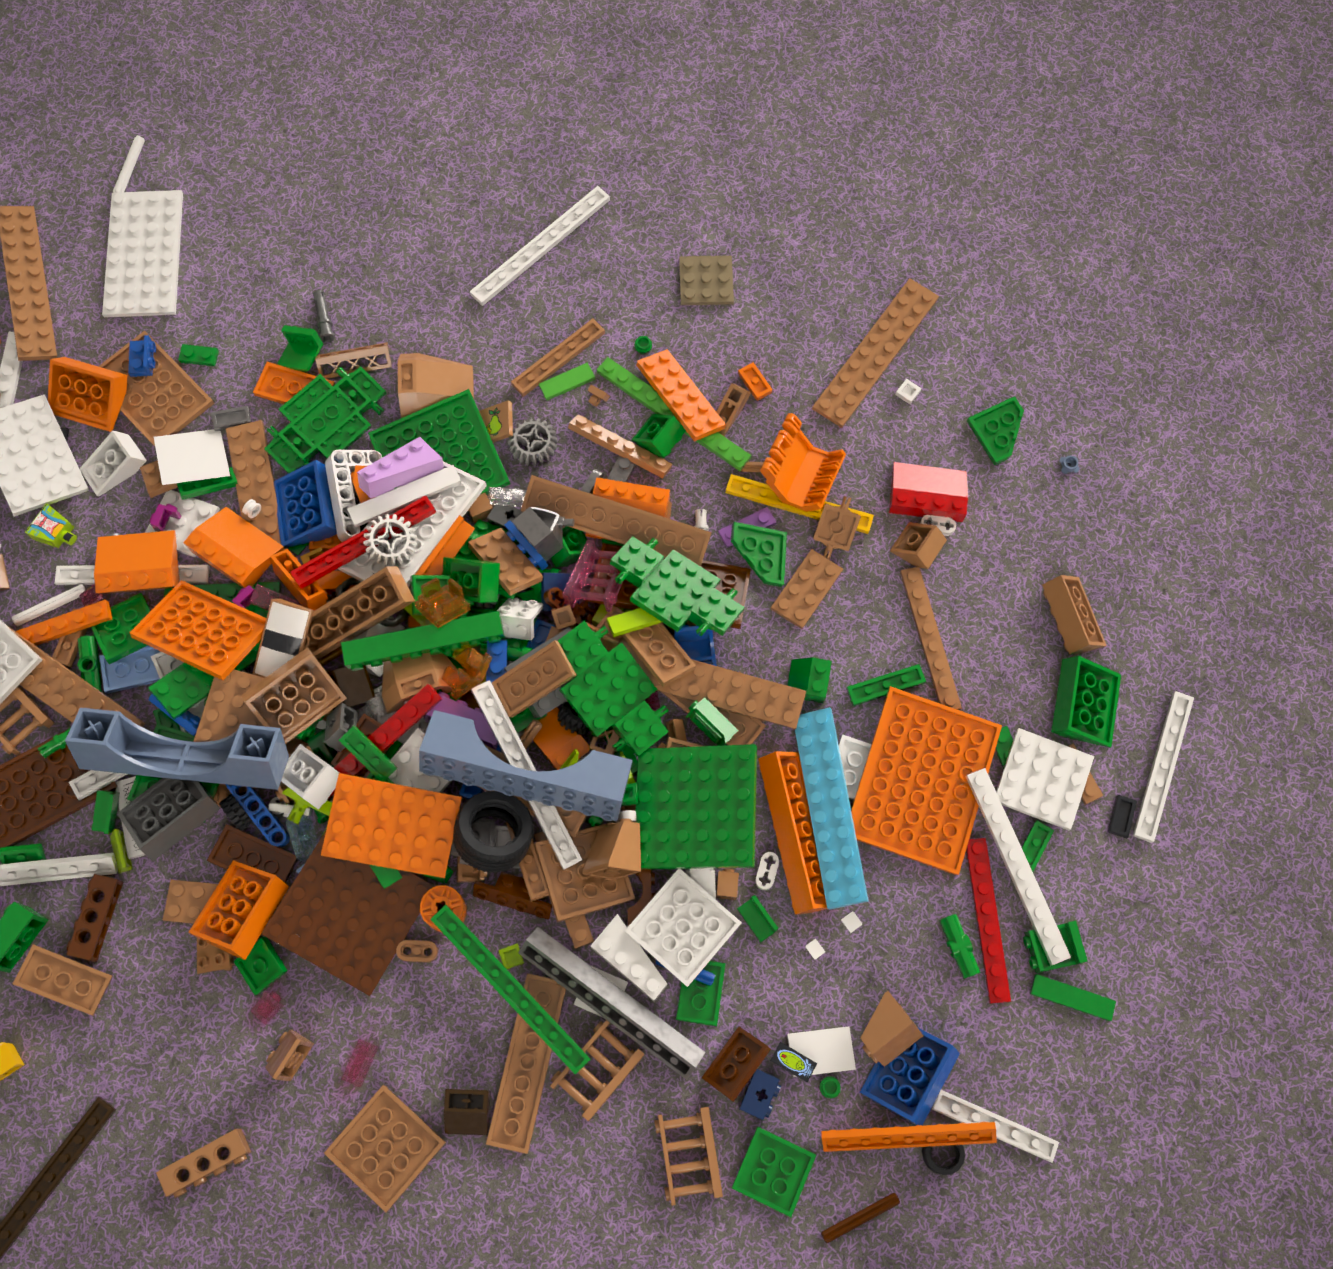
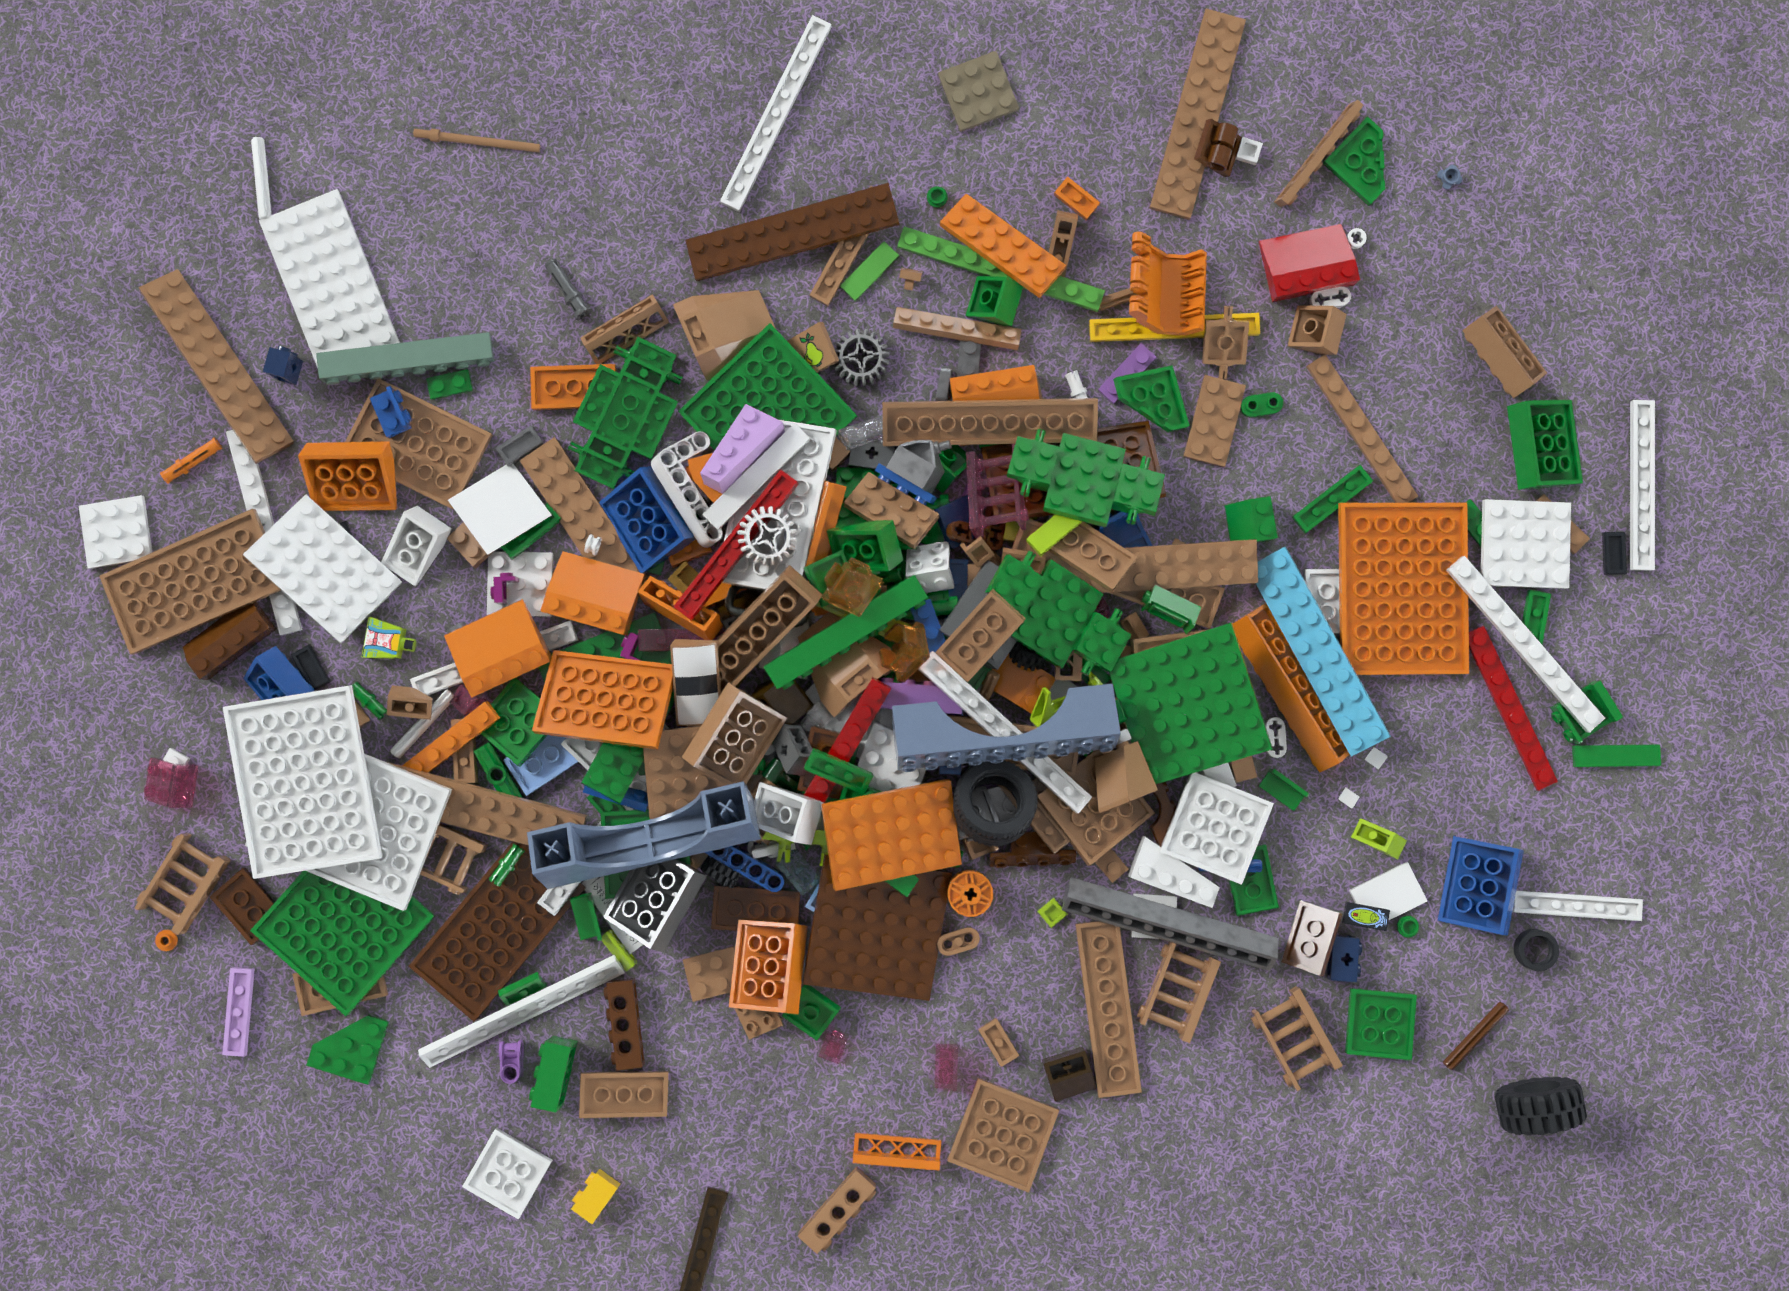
camera: 15 degrees left, 15 degrees up
(14, 571) = (368, 701): none -> green pin
(43, 581) = (409, 703): none -> medium nougat slope
(75, 295) = (283, 365): none -> dark blue brick
(172, 322) = (405, 358): none -> sand green brick
(275, 178) = (436, 135): none -> medium nougat bar
(279, 1135) = (897, 1160): none -> orange fence
(288, 1056) = (875, 1087): medium nougat slope -> none
(301, 348) = (561, 339): green bracket -> none
(416, 1057) = (998, 1042): none -> medium nougat plate
(510, 989) = (1069, 949): green plate -> none
(517, 331) = (792, 232): none -> reddish brown plate
(830, 995) = (1379, 838): none -> lime slope
(851, 590) = (1262, 404): none -> green plate
(883, 378) = (1218, 147): none -> reddish brown plate
(889, 1031) = (1451, 855): medium nougat slope -> none
(909, 1136) = (1502, 948): orange plate -> none
(960, 946) = (1492, 745): green piece -> none
(971, 408) = (1324, 148): none -> medium nougat plate
(975, 491) = (1362, 236): none -> white bush

